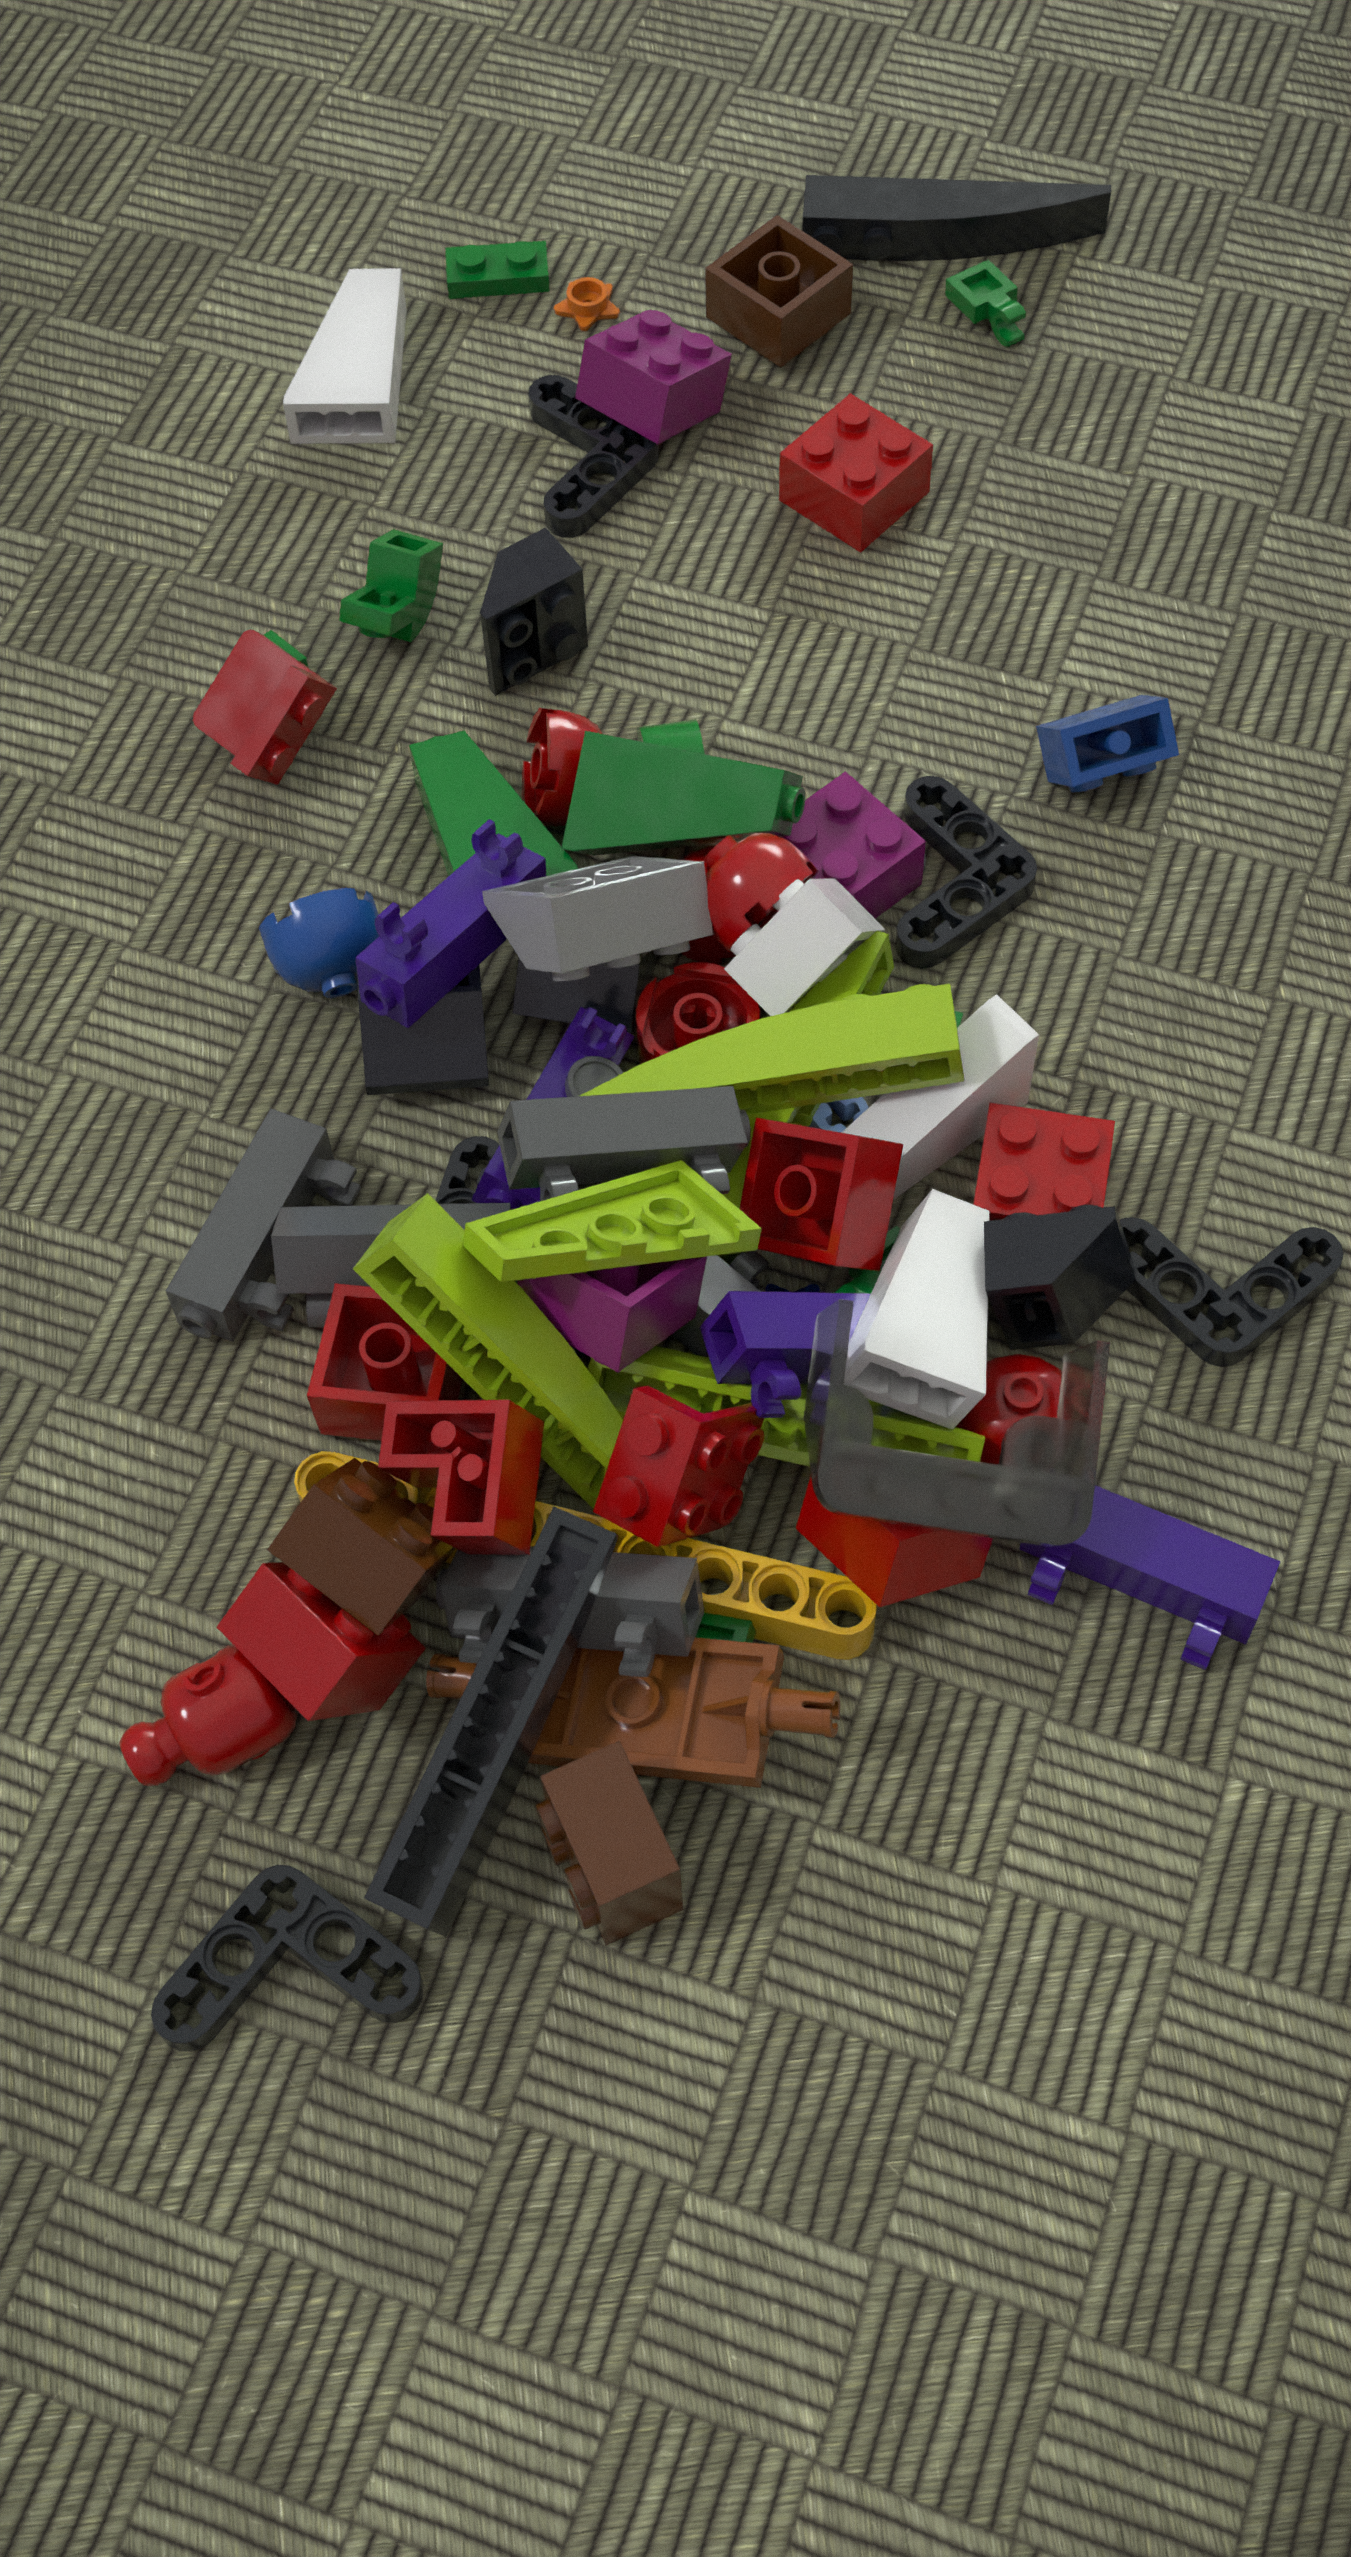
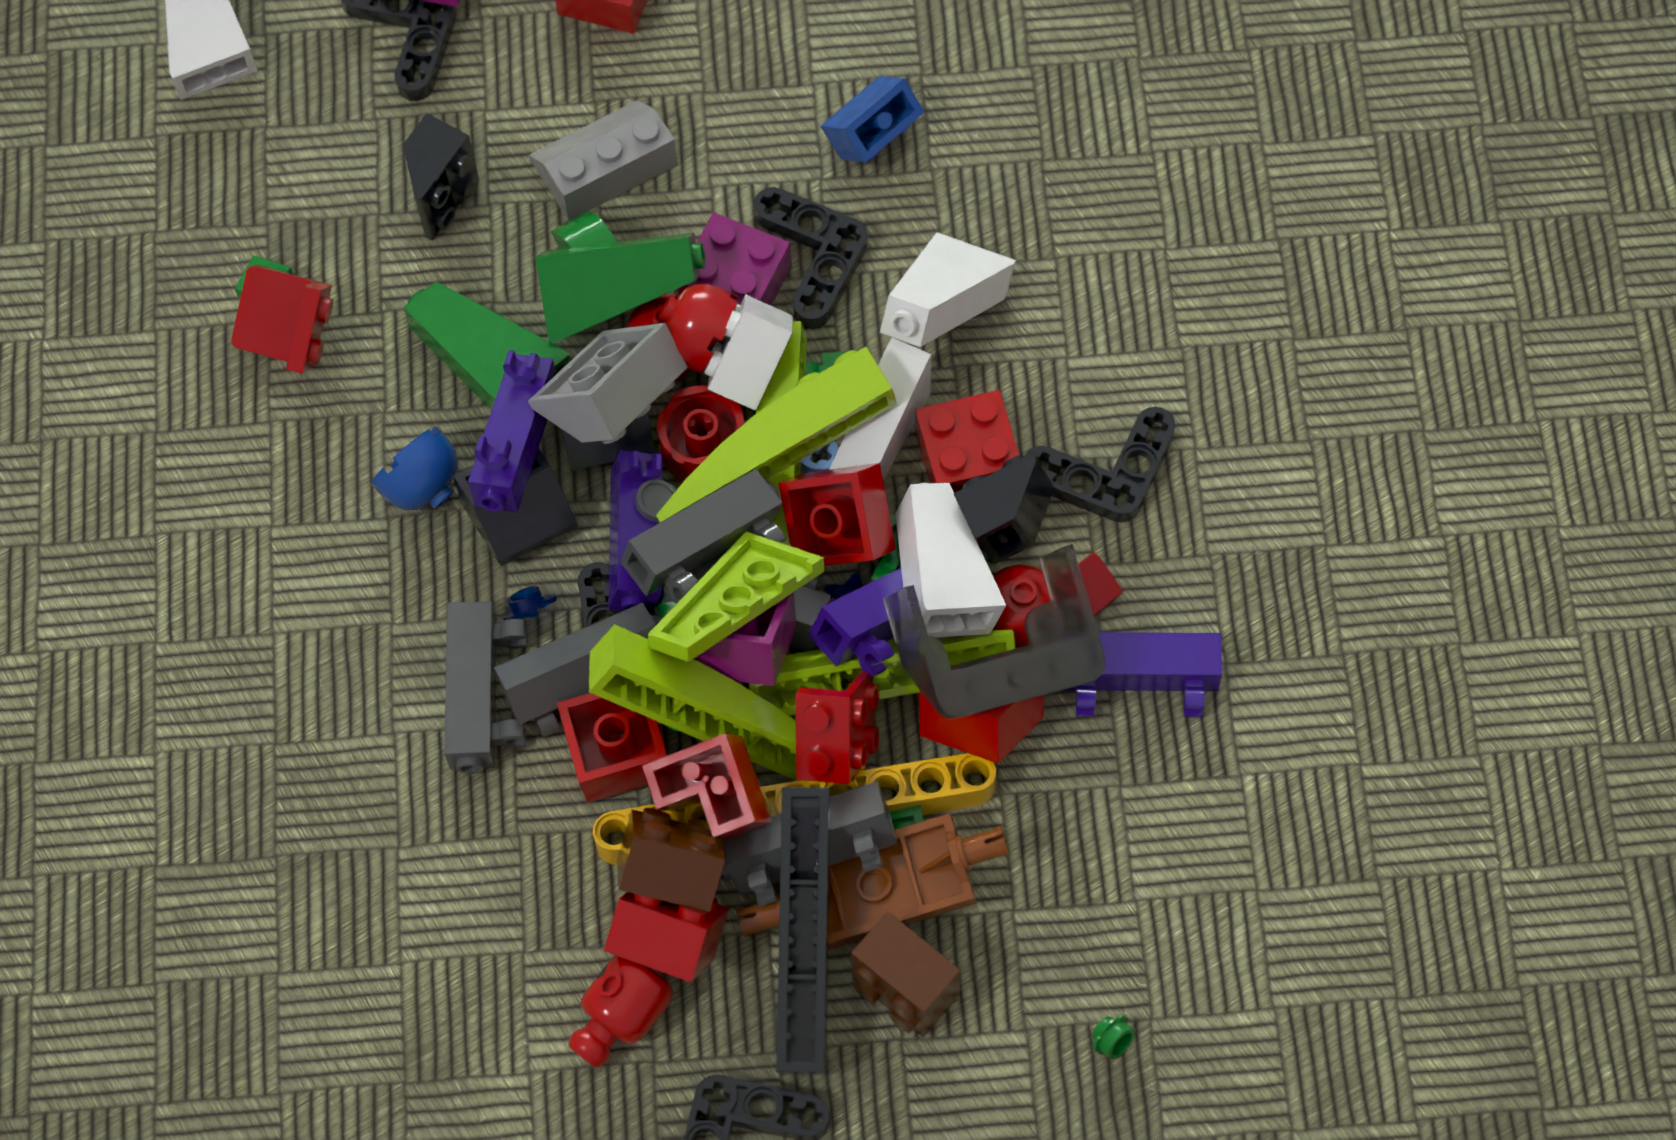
camera: 25 degrees left, 5 degrees up
(376, 1152) = (527, 603): none -> clear blue plate
(398, 587) = (327, 189): green brick -> none
(554, 763) = (512, 281): red cylinder -> none
(752, 676) = (606, 158): none -> light grey slope
(869, 2066) = (1112, 1036): none -> green plate
(1098, 970) = (944, 289): none -> white slope
(1132, 1429) = (1099, 583): none -> red slope

